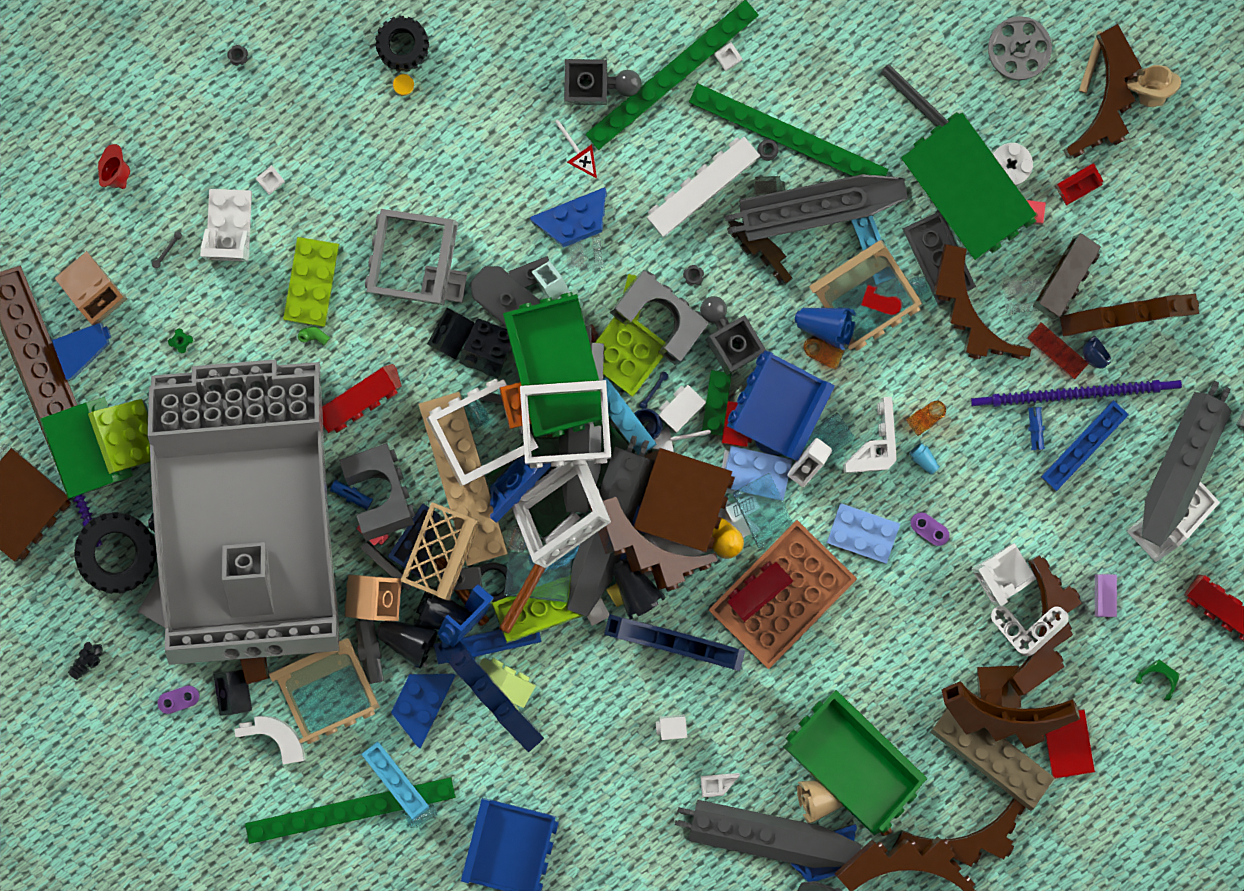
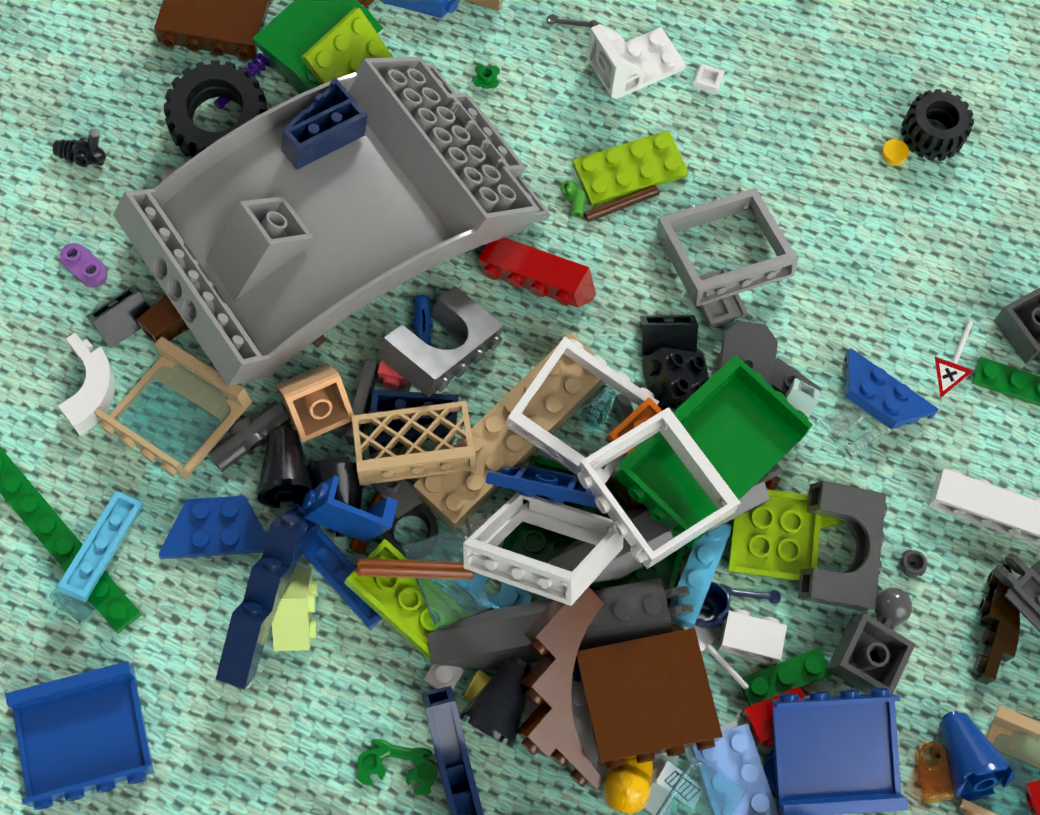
camera: 55 degrees right, 20 degrees down
(185, 491) = (324, 126): none -> dark blue wedge
(334, 312) = (621, 203): none -> reddish brown bar
(624, 684) = (371, 763): none -> green helmet

